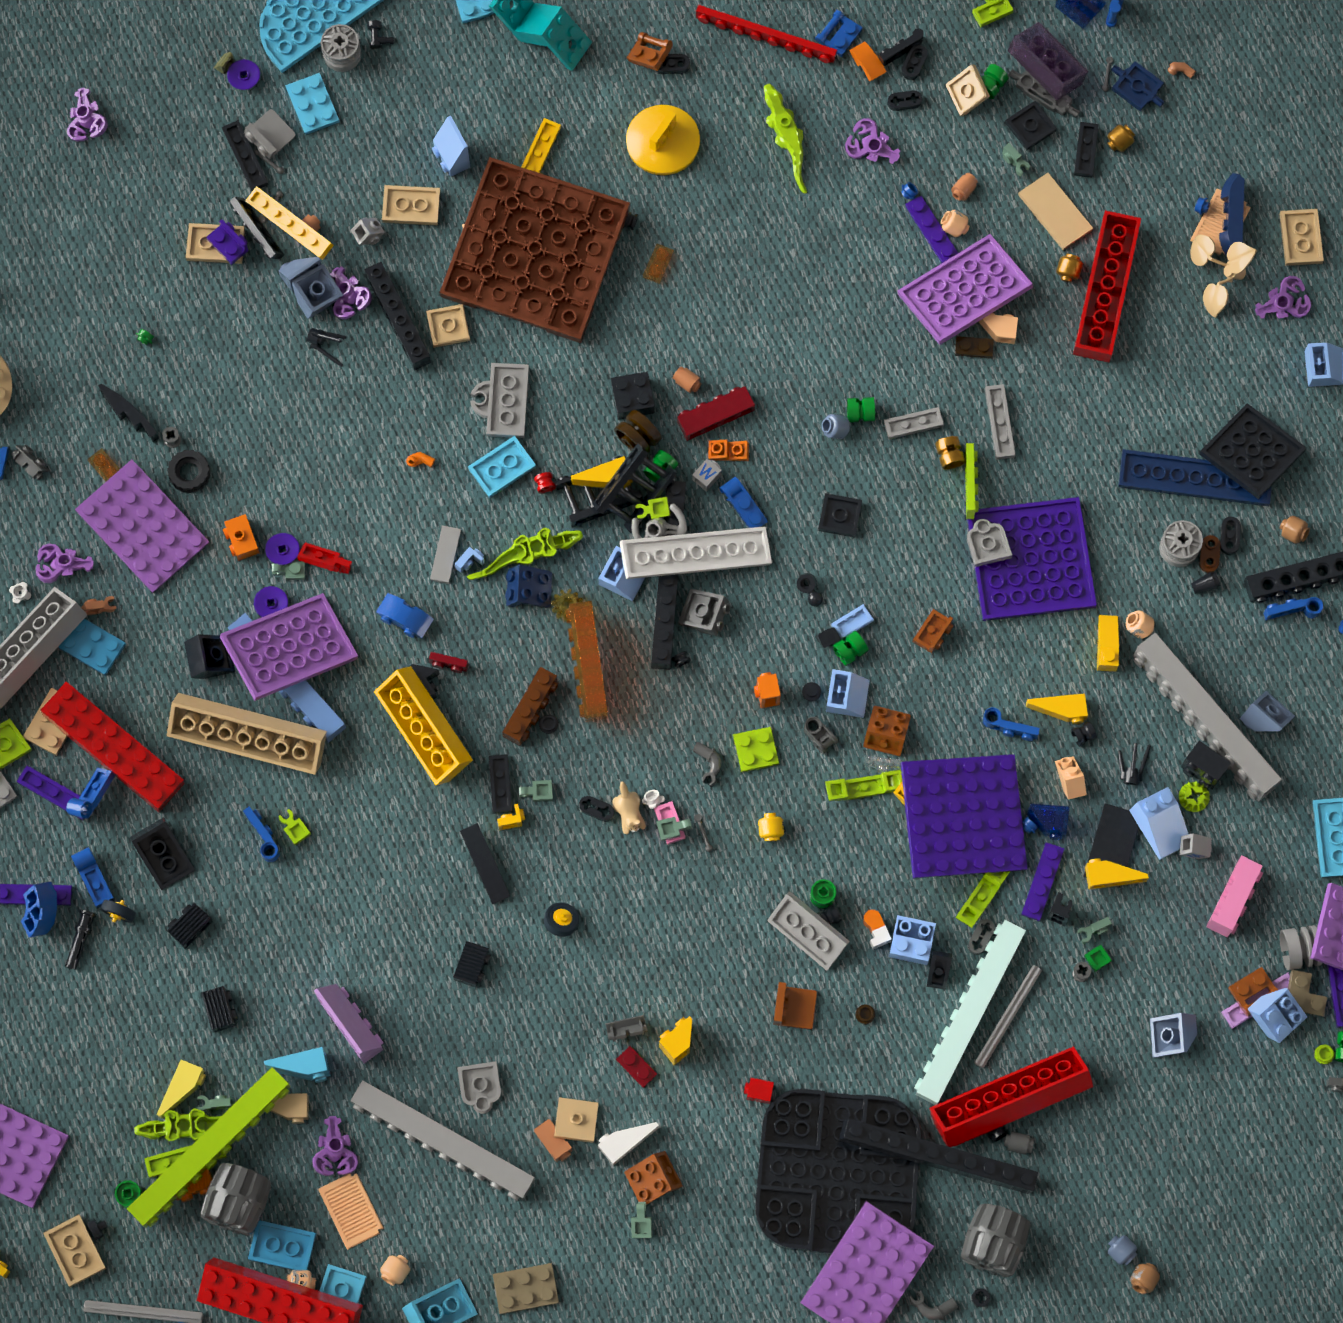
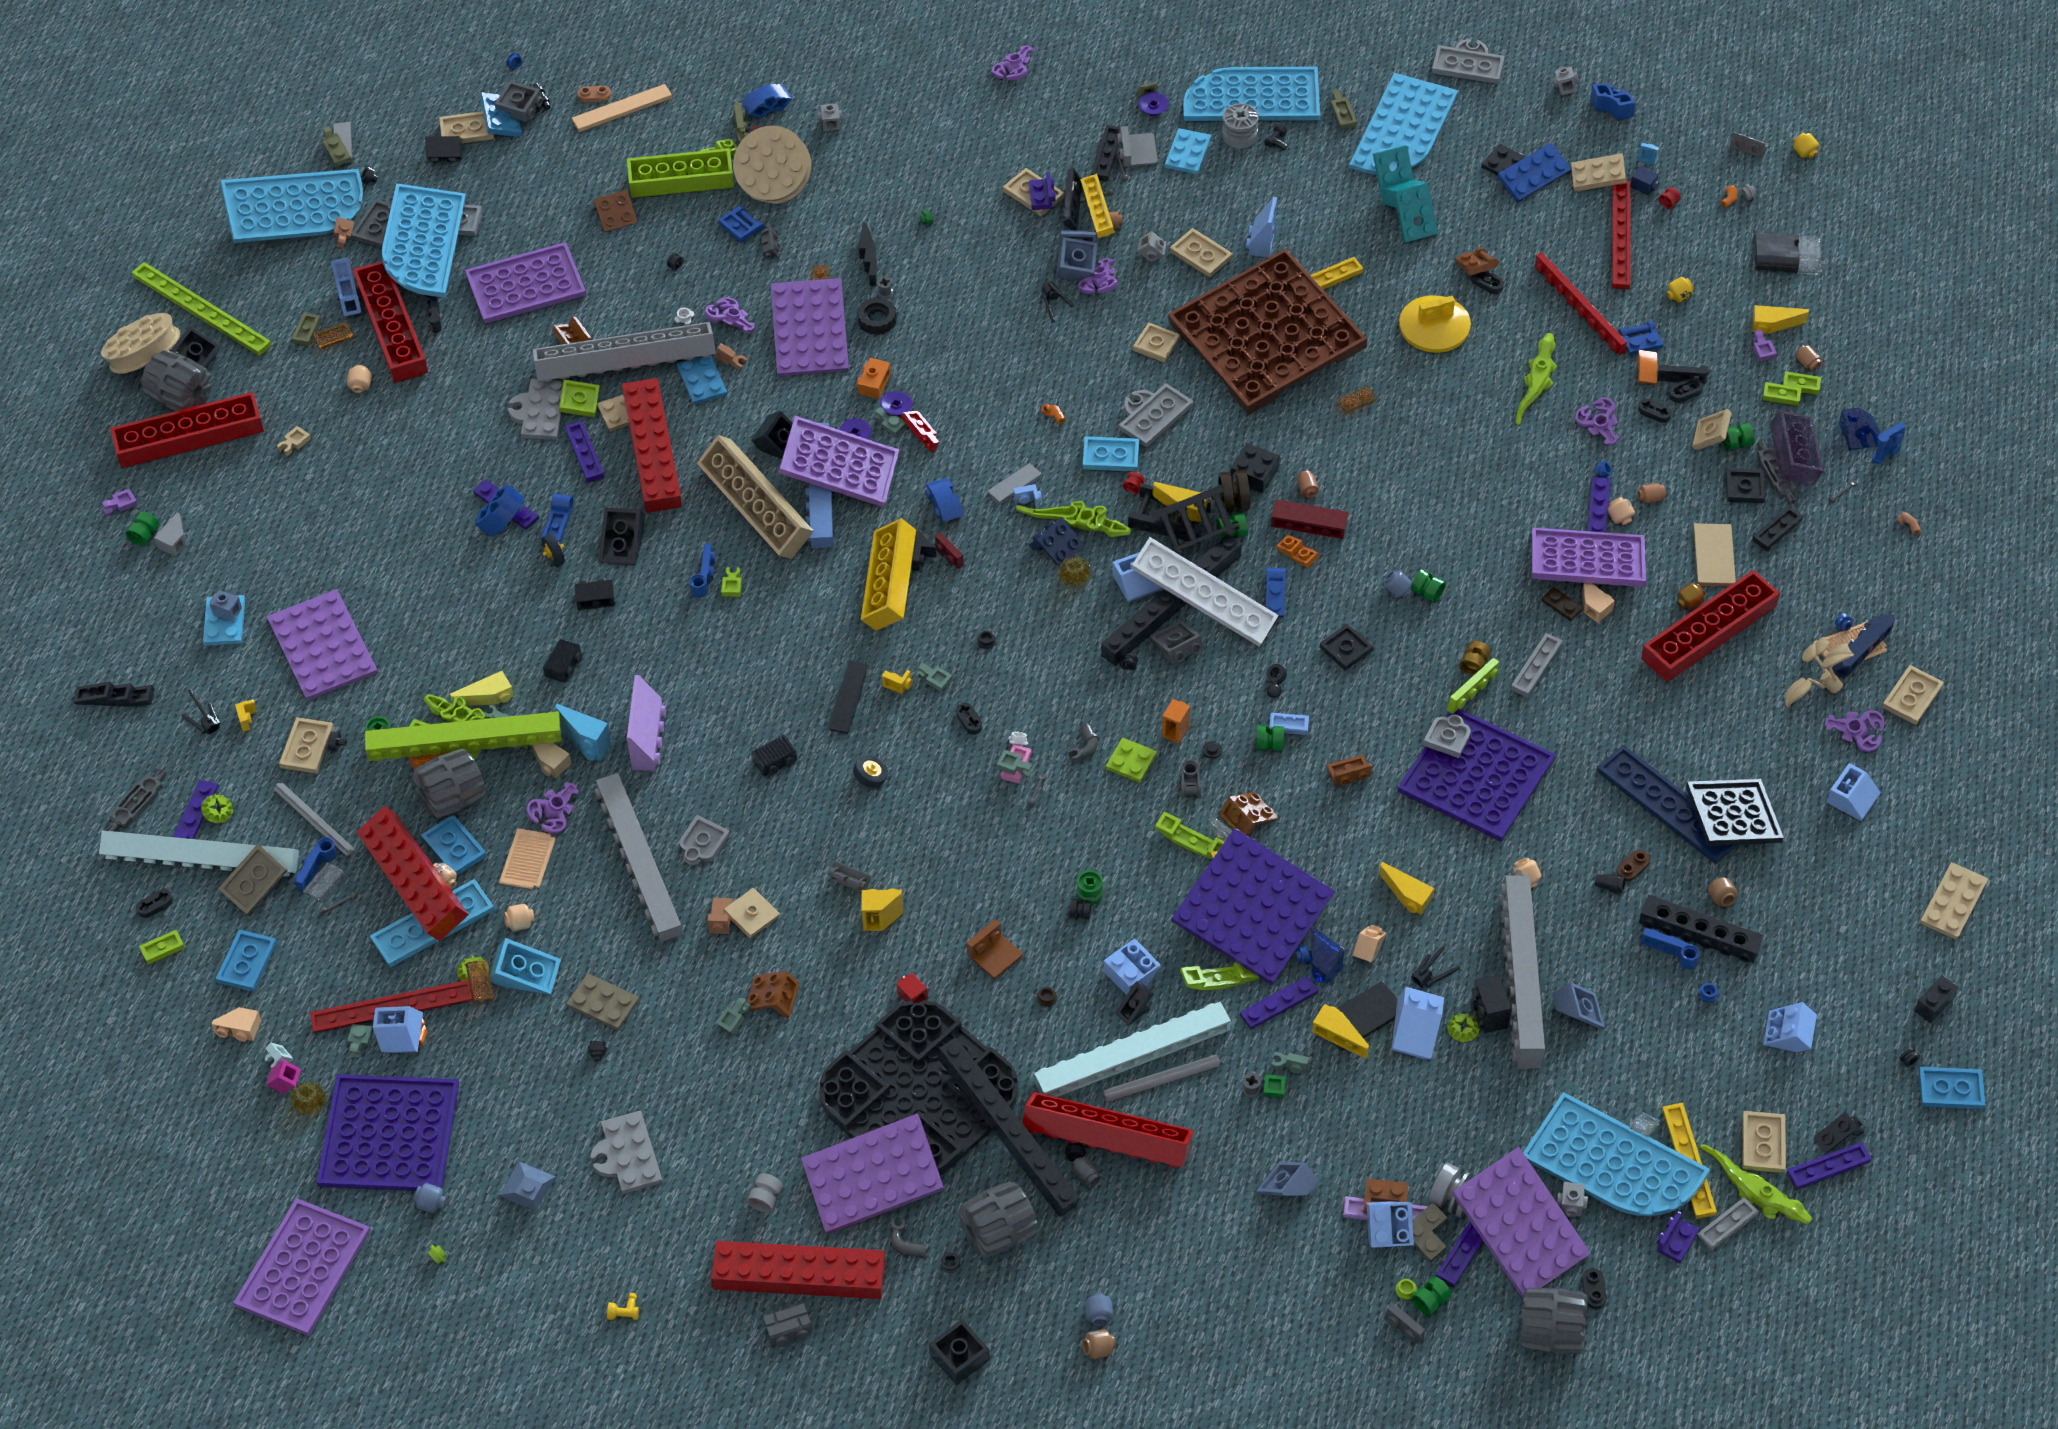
camera: 40 degrees right, 20 degrees down
(82, 930) = (517, 548): black pin -> none
(91, 795) = (608, 465): blue plate -> none
(397, 316) = (1123, 312): black brick -> none
(500, 784) = (912, 653): black plate -> none
(530, 706) = (982, 616): reddish brown brick -> none
(588, 661) = (1051, 609): clear orange brick -> none
(622, 1142) = (774, 952): white slope -> none
(628, 805) = (993, 731): tan animal -> none
(631, 220) = (1360, 359): black bush -> none
(636, 1067) = (832, 910): dark red plate -> none
(652, 531) = (1190, 553): light grey piece -> none
(657, 508) = (1200, 543): lime plate -> none
(707, 474) = (1264, 554): light grey brick -> none
(771, 827) = (1092, 817): yellow head -> none
(808, 930) = (1054, 904): light grey plate -> none
(828, 637) = (1259, 717): black slope -> none
(847, 694) = (1238, 765): light blue slope -> none
(875, 923) = (1112, 941): leg -> none
(913, 423) = (1464, 622): light grey plate -> none
(985, 939) = (1190, 1004): dark grey beam -> none
(1010, 728) = (1349, 875): blue plate -> none
(1012, 156) = (1710, 496): sand green plate -> none
(1059, 912) = (1269, 1023): black hinge -> none
(1084, 733) = (1413, 920): black wheel -> none
(1108, 643) = (1486, 871): yellow slope -> none
(1120, 138) = (1814, 536): pearl gold head -> none
(1137, 86) = (1860, 511): dark blue plate -> none
(1171, 548) = (1612, 837): light grey wheel -> none
(1195, 846) = (1430, 1059): light grey brick -> none
(1230, 536) = (1661, 863): black plate -> none
(1235, 896) = (1430, 1117): bright pink wedge -> none

